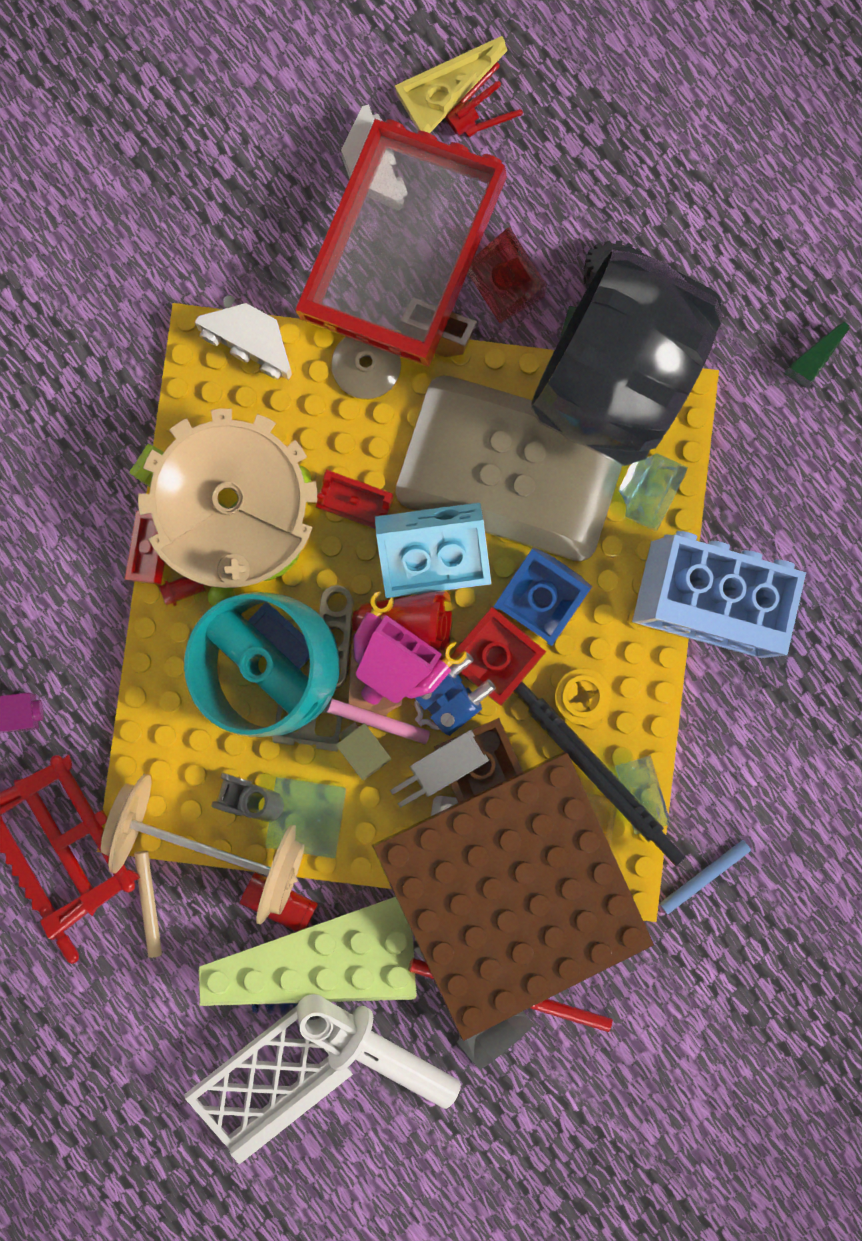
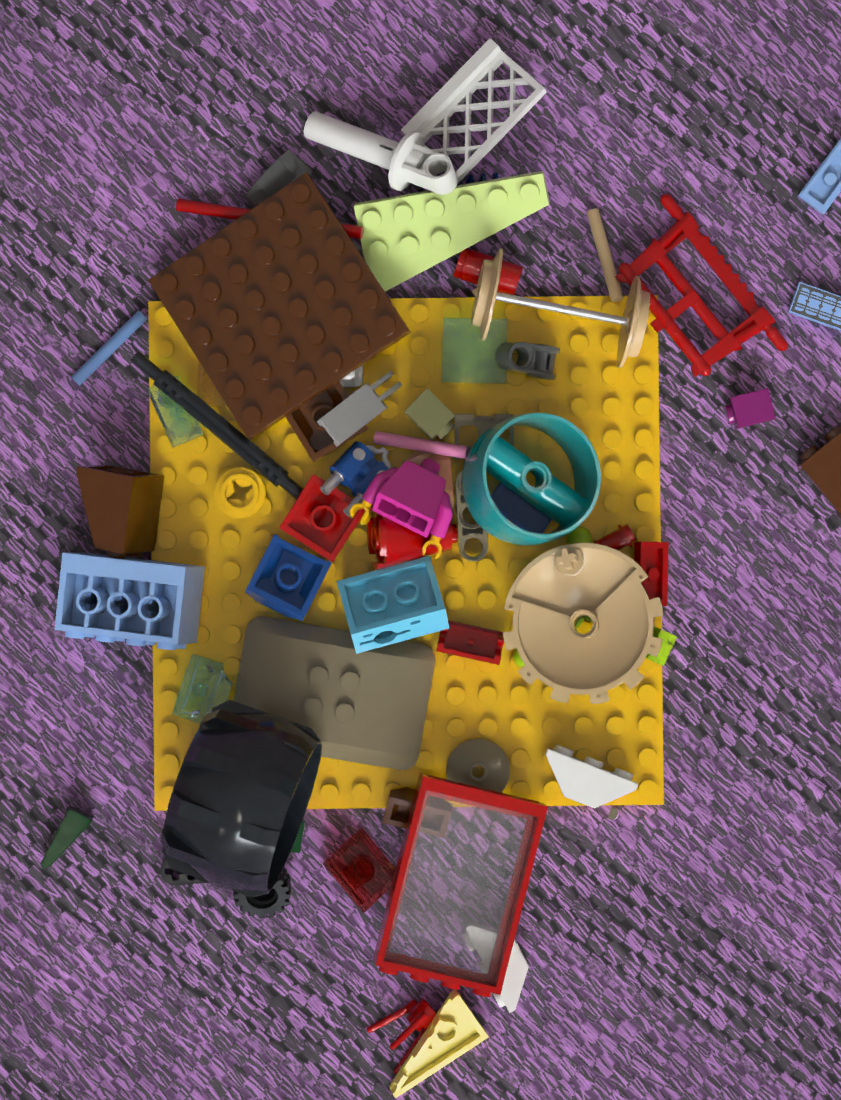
camera: 175 degrees right, 5 degrees up
(715, 697) = (121, 508): none -> reddish brown slope

